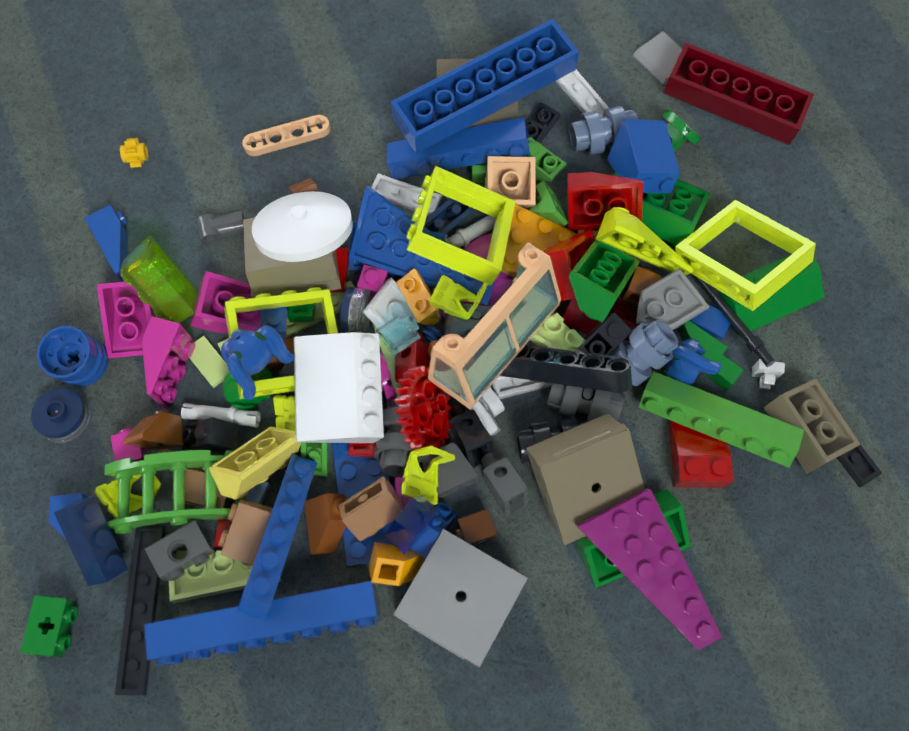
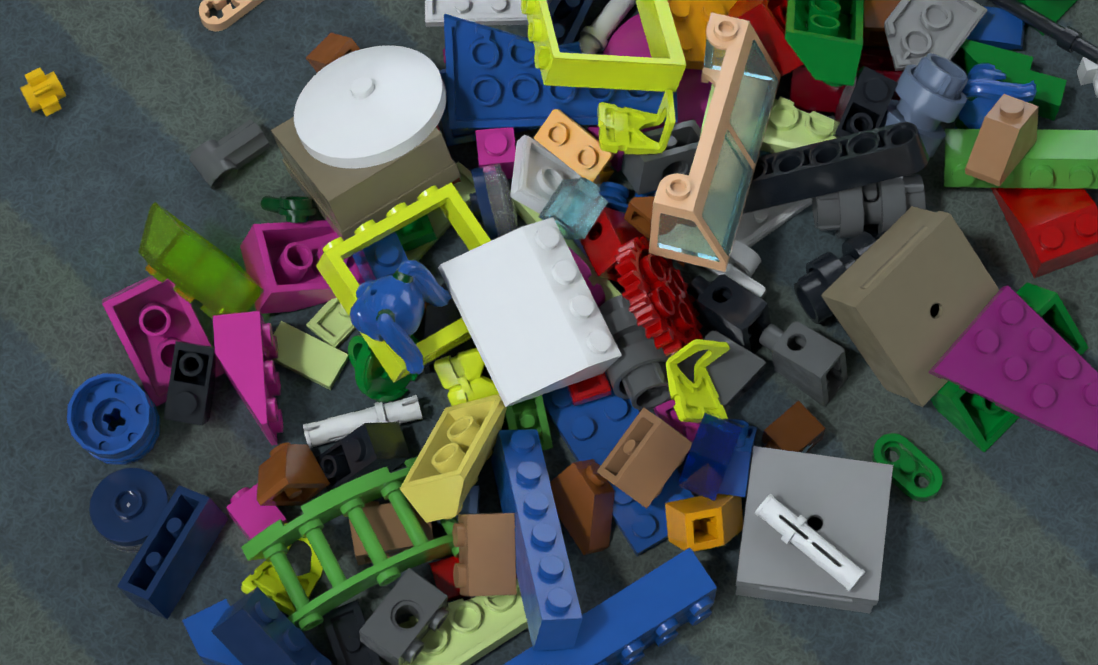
camera: 20 degrees left, 0 degrees up
(67, 451) = (173, 552): none -> dark blue brick
(111, 235) = (65, 223): blue slope -> none
(125, 355) = (191, 383): none -> black slope
(236, 270) = (293, 207): none -> dark green plate
(466, 641) = (772, 510): none -> white pin
(541, 579) = (910, 465): none -> green plate
(686, 392) = (1003, 140): none -> medium nougat slope

